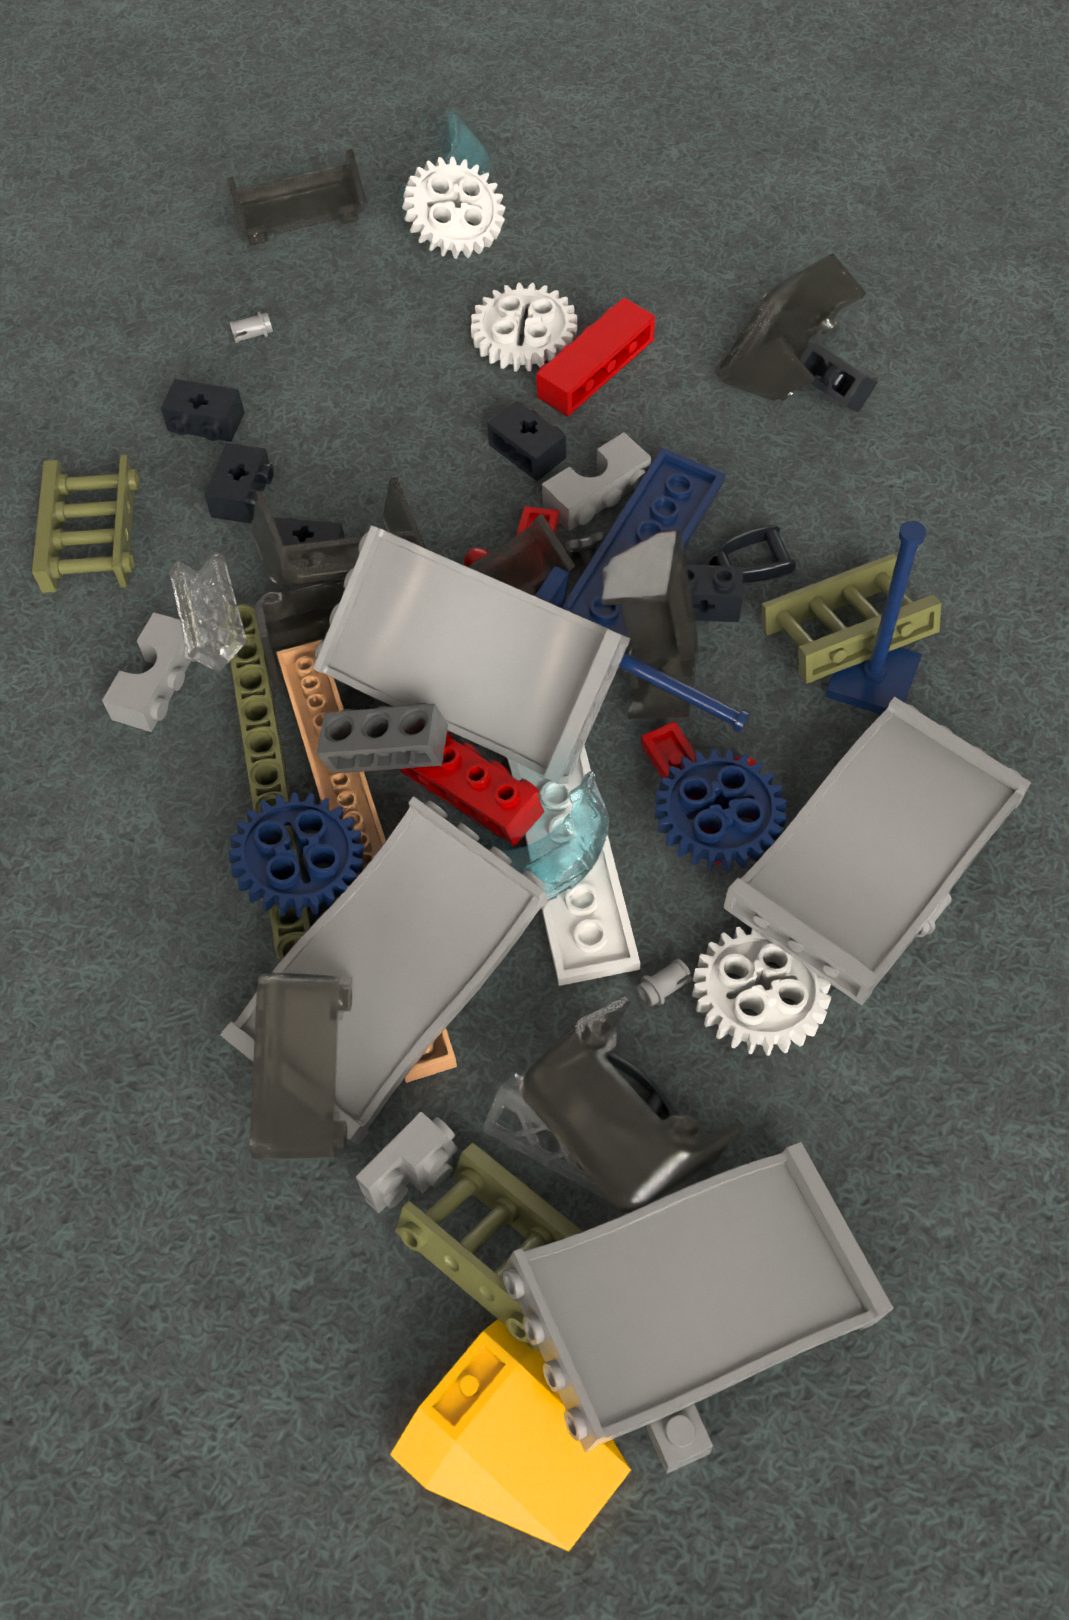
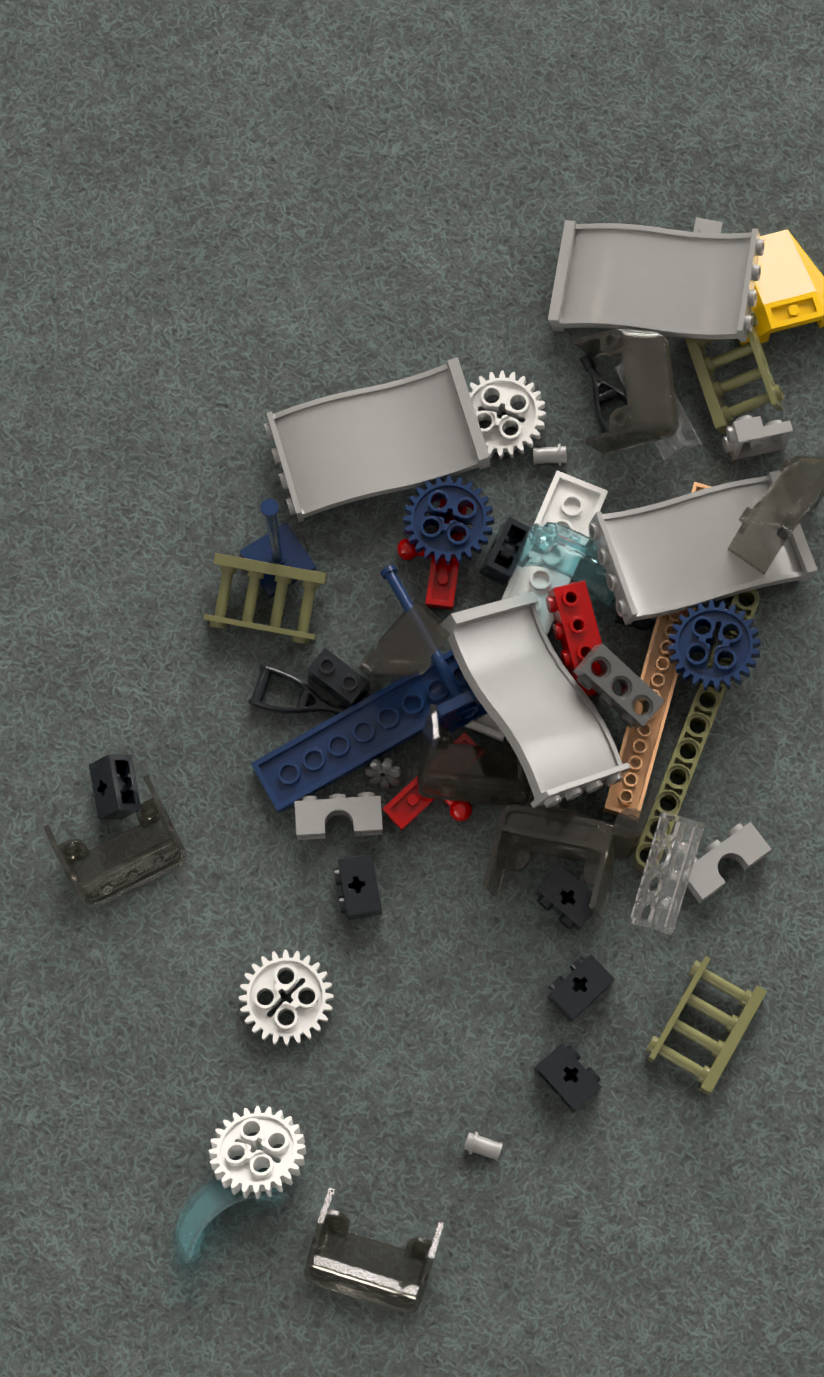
camera: 150 degrees left, 15 degrees up
(595, 356) = (260, 925): red brick -> none
(629, 827) = (505, 551): none -> black brick

